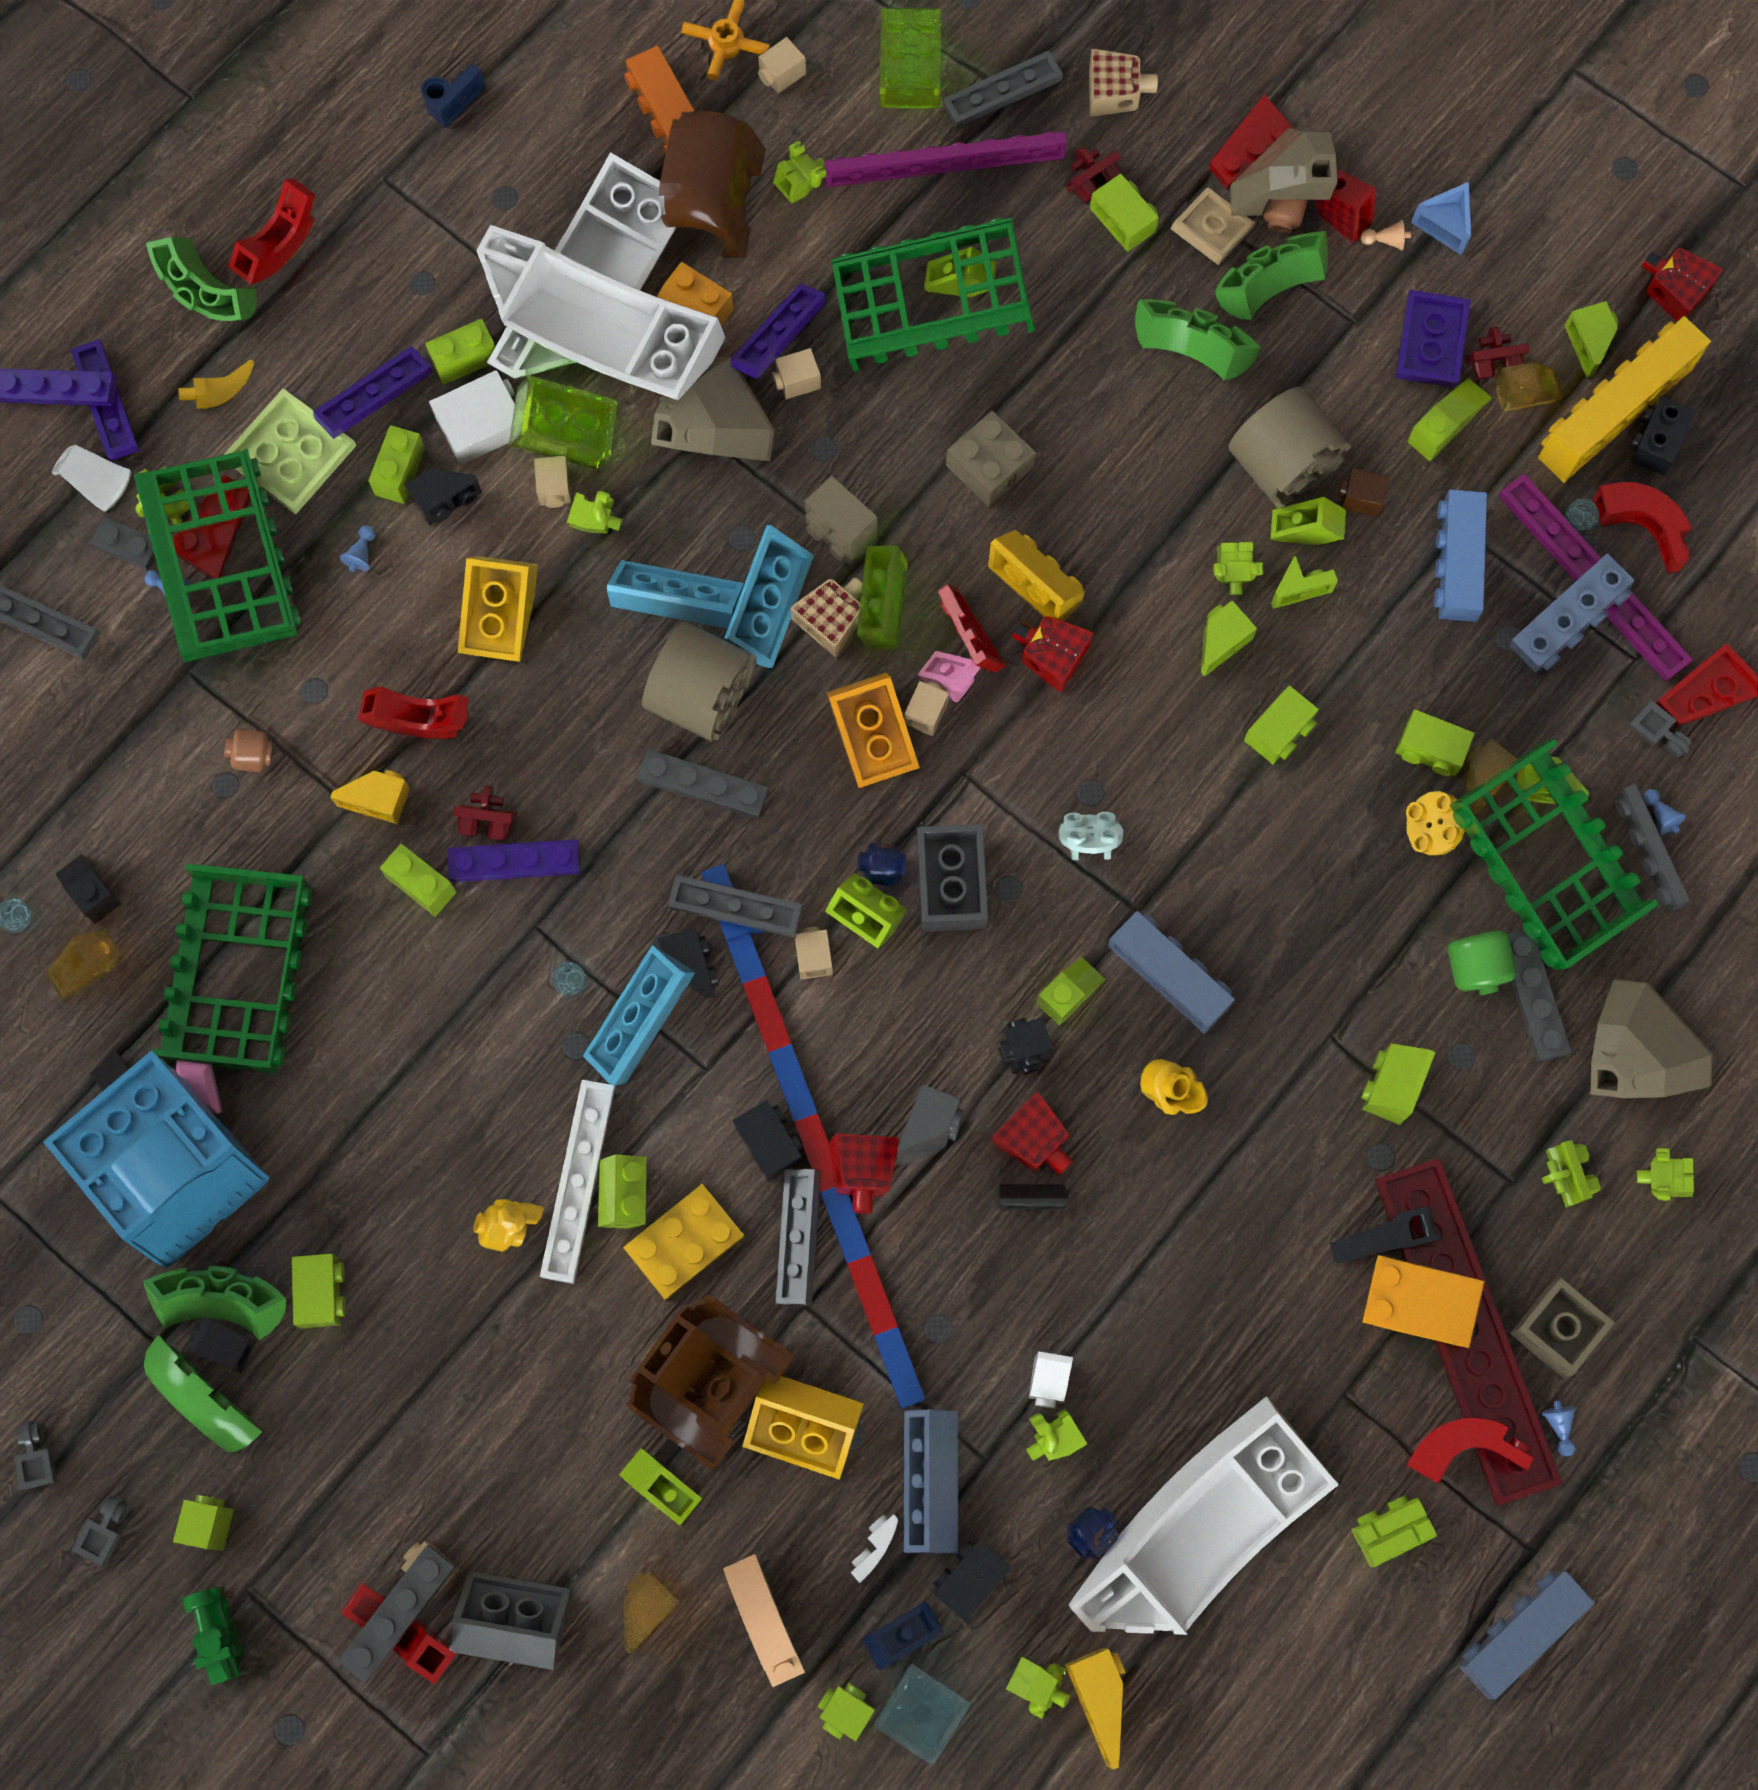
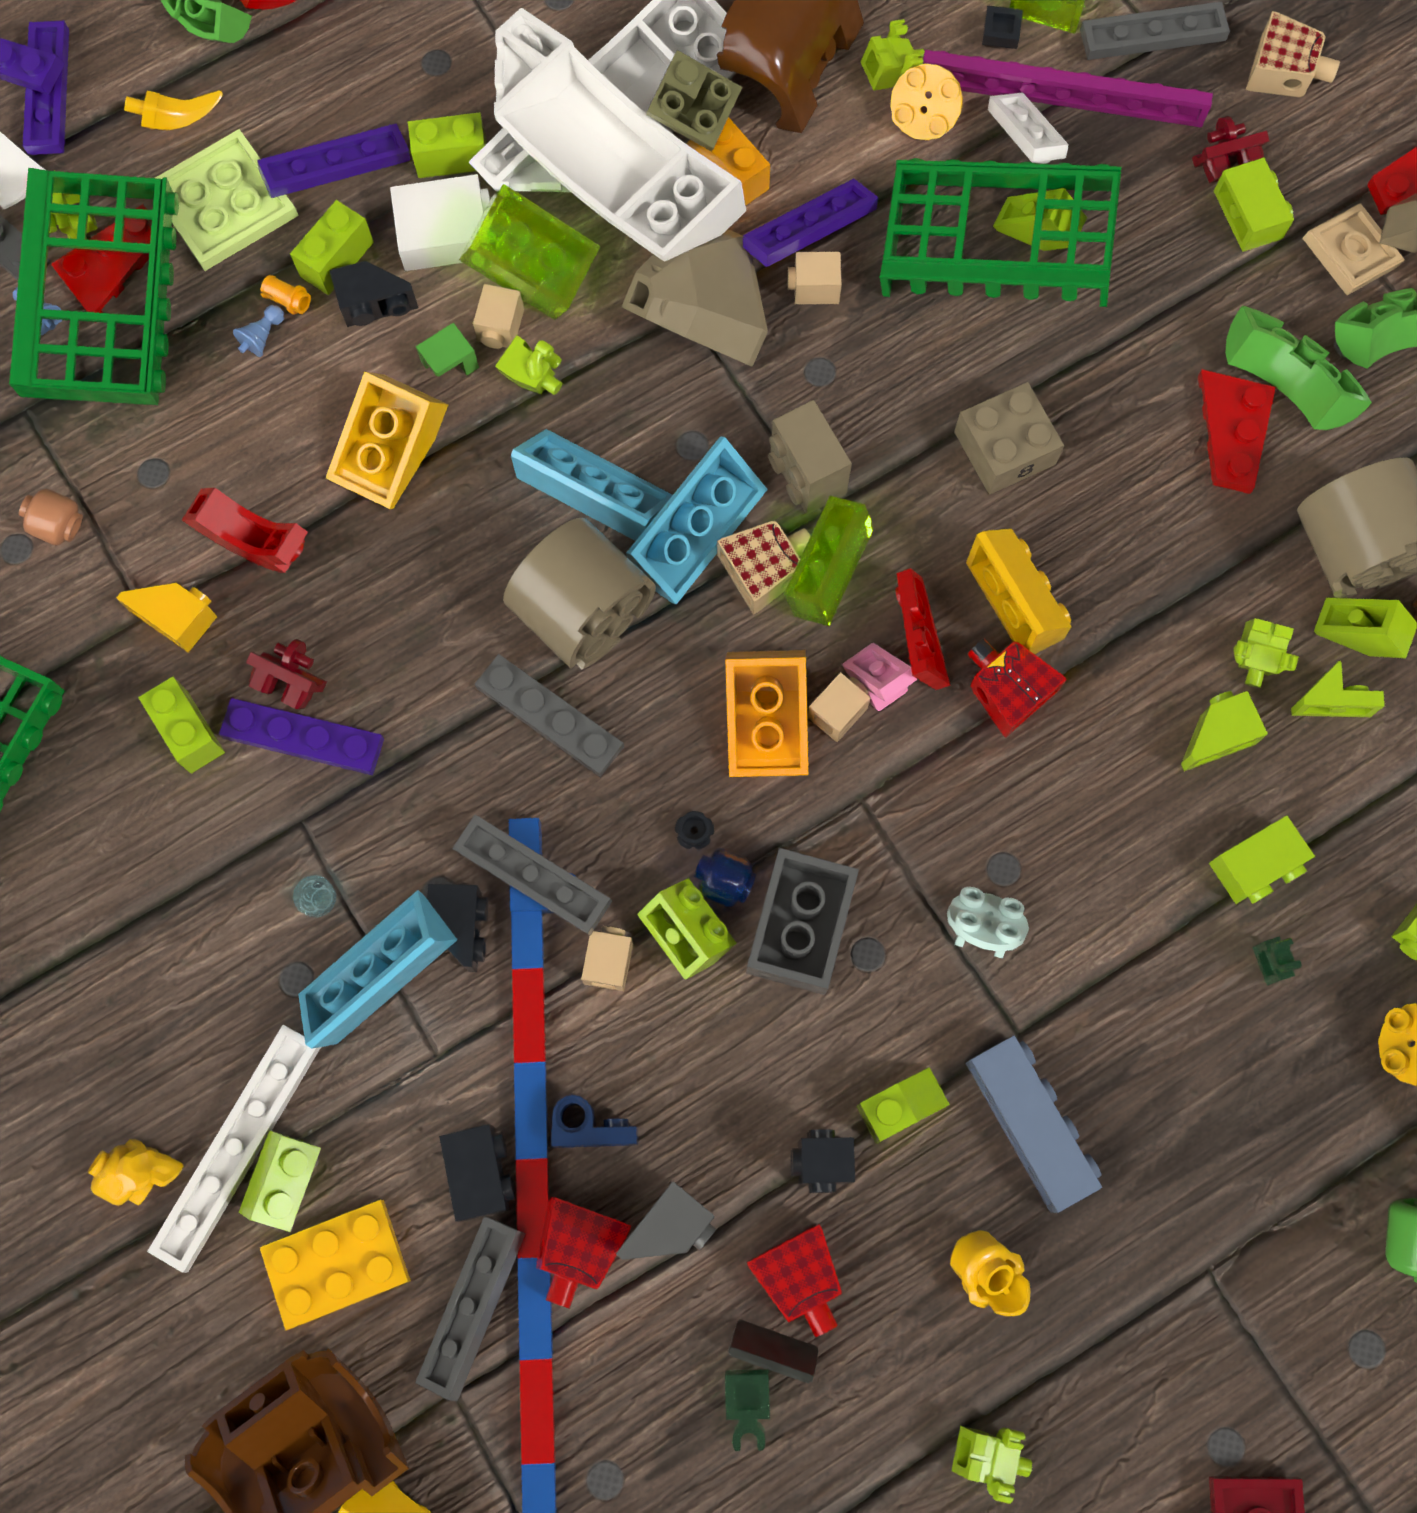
camera: 20 degrees right, 0 degrees up
(371, 514) = (293, 298): none -> light orange pin
(522, 522) = (446, 351): none -> bright green panel
(654, 260) = (693, 100): none -> olive slope
(824, 202) = (910, 96): none -> yellow plate
(849, 829) = (686, 823): none -> black plate
(860, 1080) = (614, 1133): none -> dark blue plate
(879, 121) = (1002, 27): none -> black plate
(926, 202) = (1028, 128): none -> white plate
(1025, 1235) = (747, 1401): none -> clear green plate
(1164, 395) = (1237, 426): none -> red wing
(1214, 1217) = (991, 1460): none -> lime piece
(1313, 795) = (1276, 960): none -> clear green plate
(1397, 1082) = (1278, 1363): lime slope -> none

